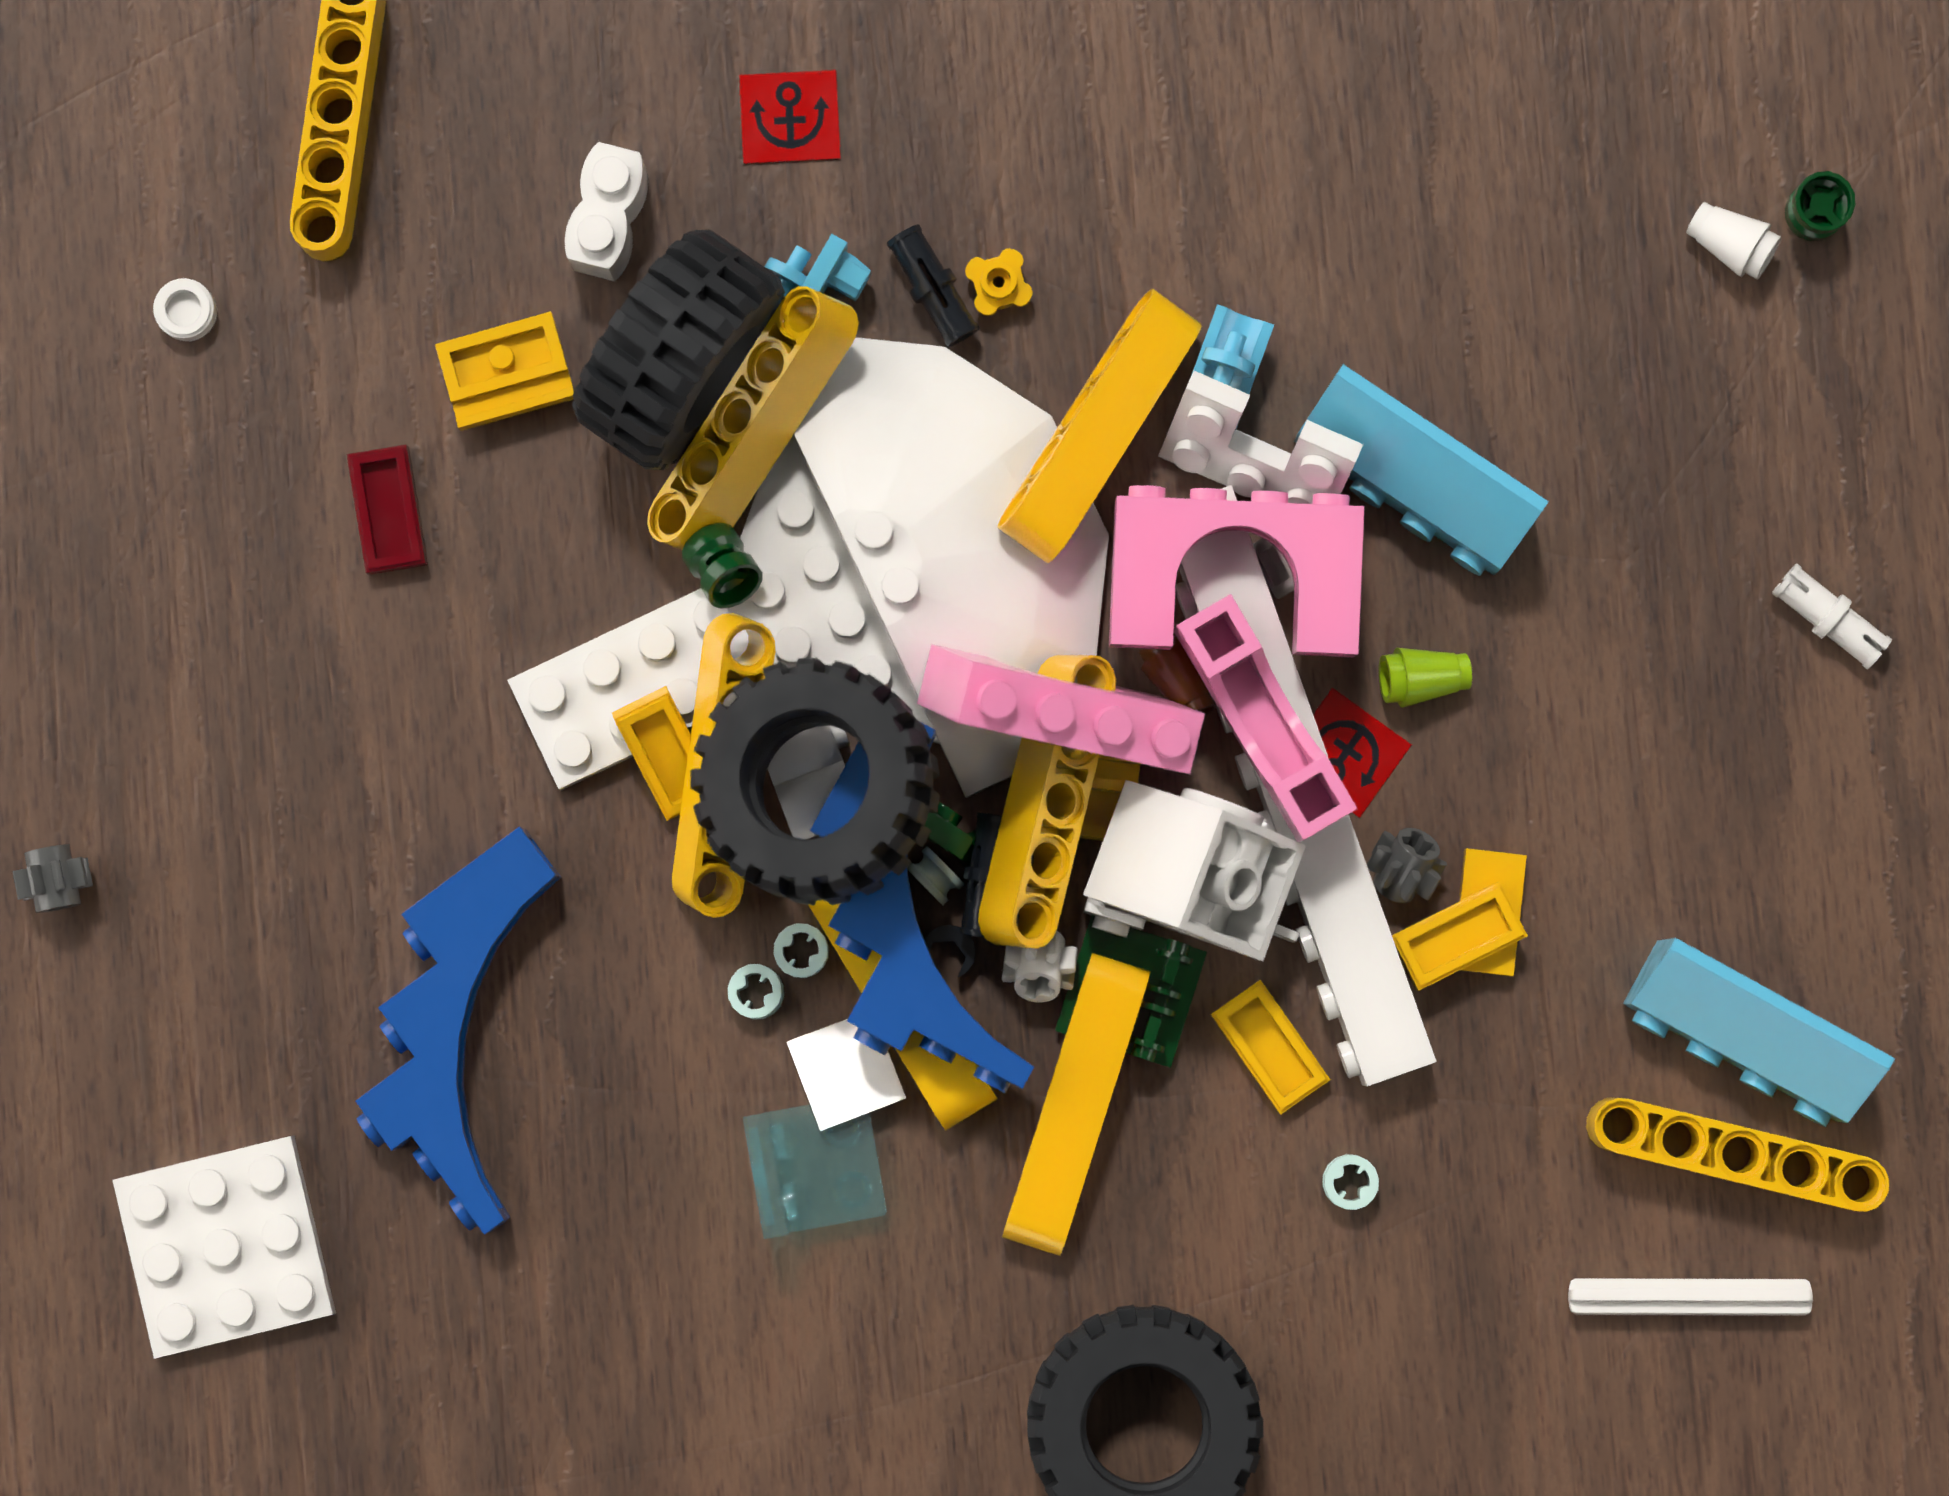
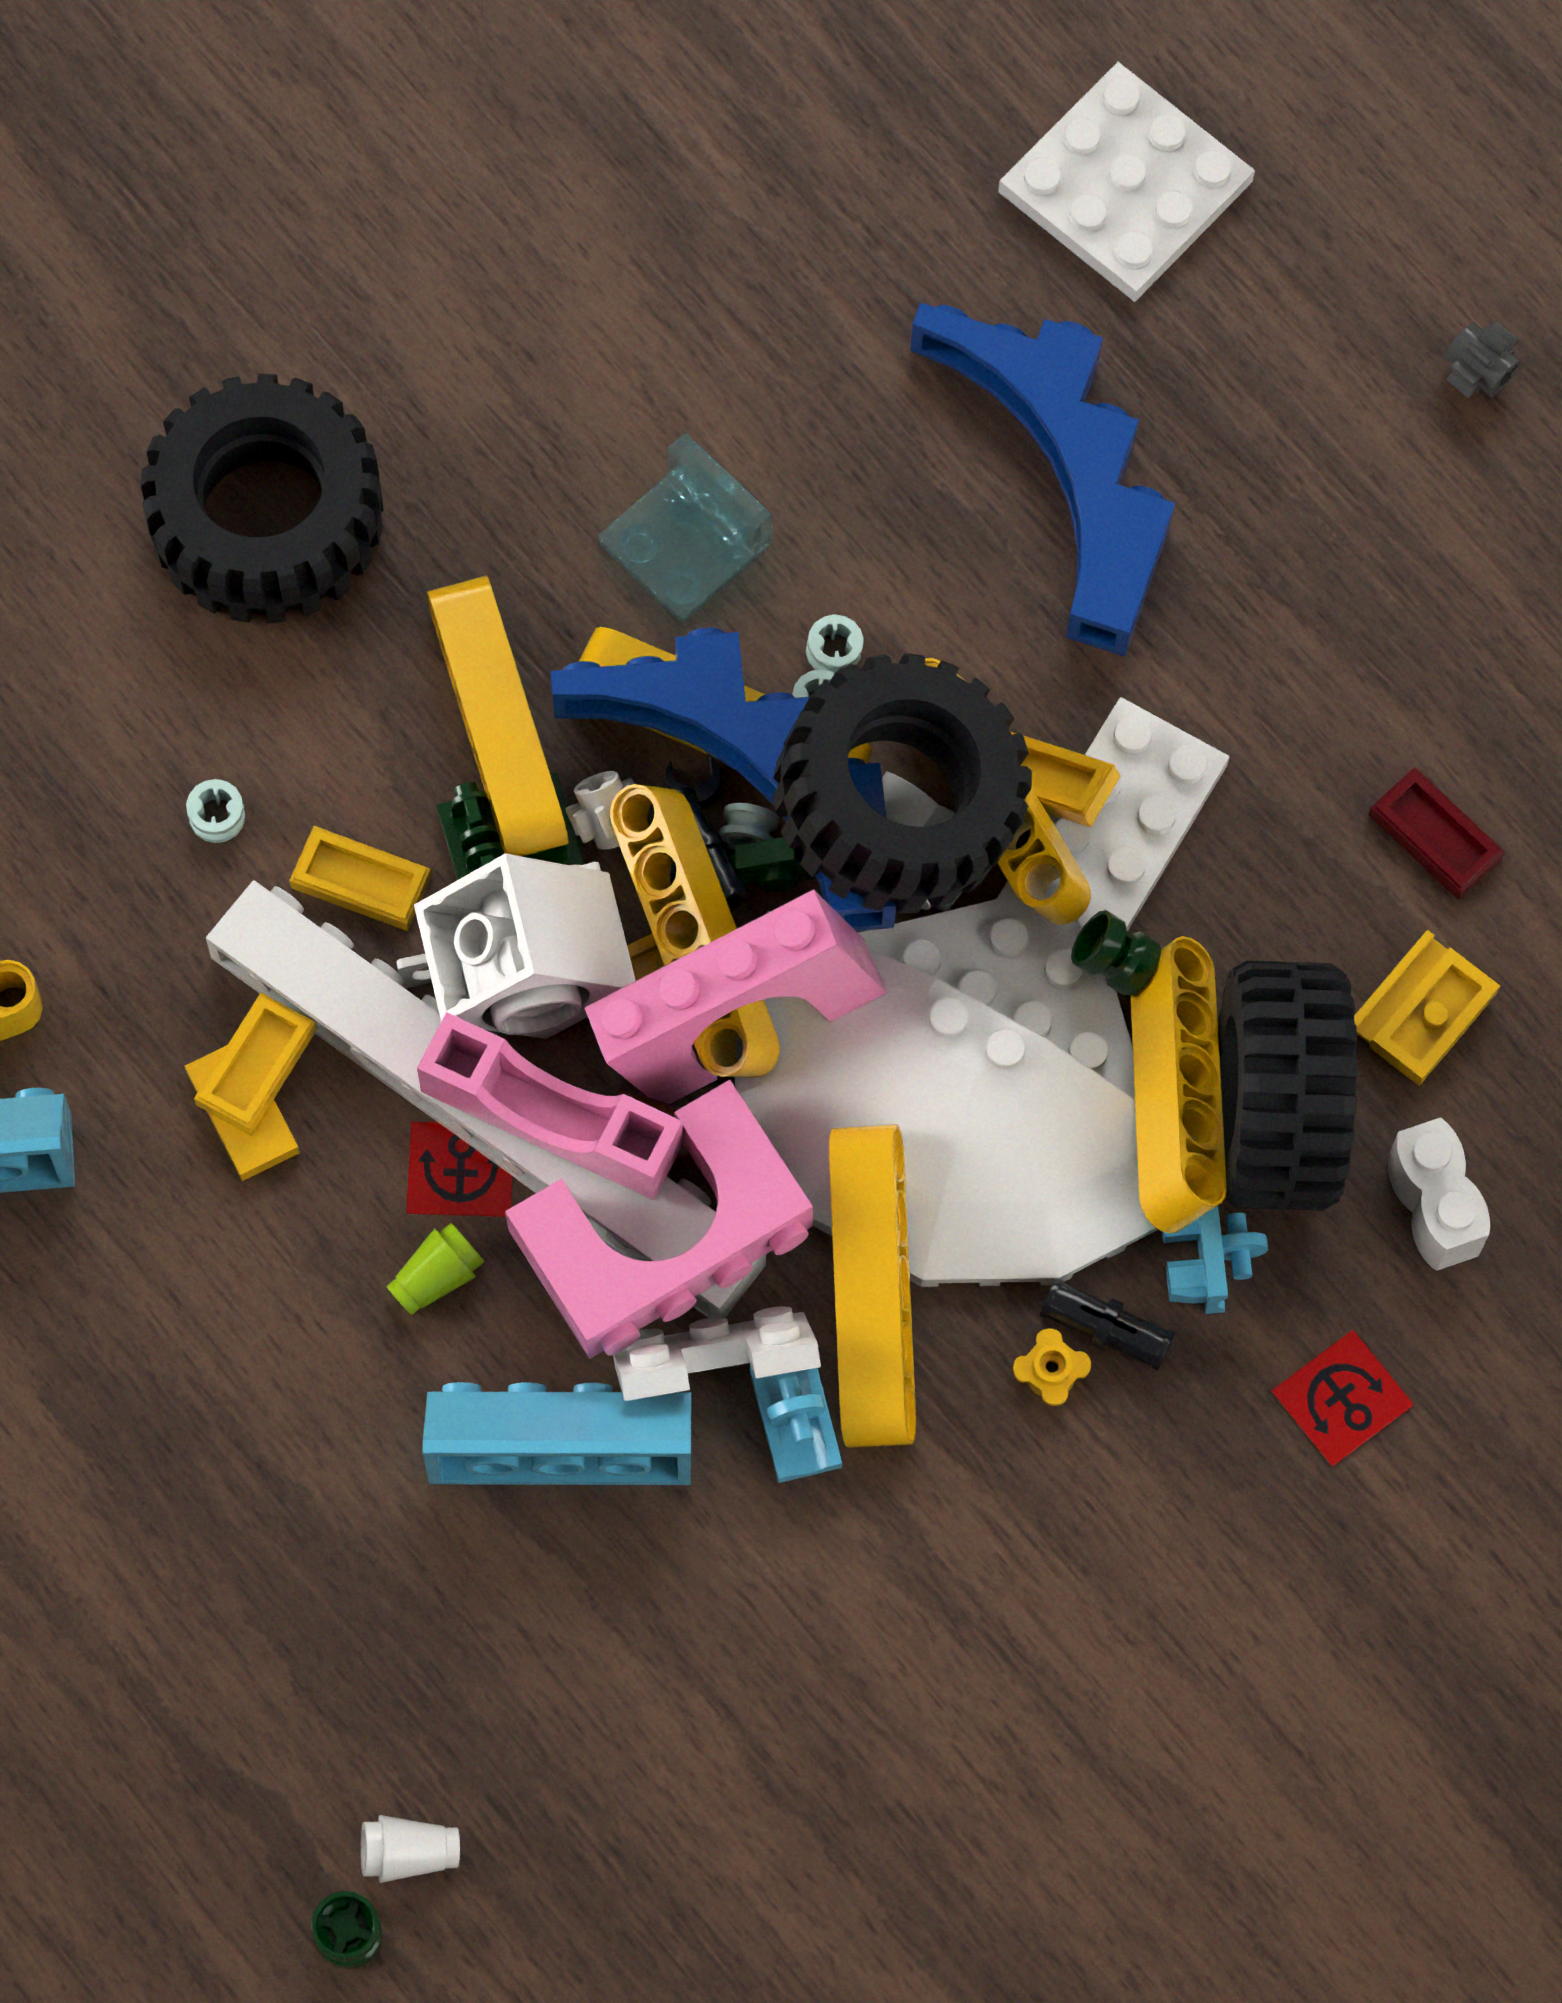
camera: 140 degrees right, 15 degrees down
(843, 1074) = (712, 603): white sticker -> none
(1406, 865) = (342, 1093): dark grey gear -> none
(1832, 616) = (96, 1563): white pin -> none

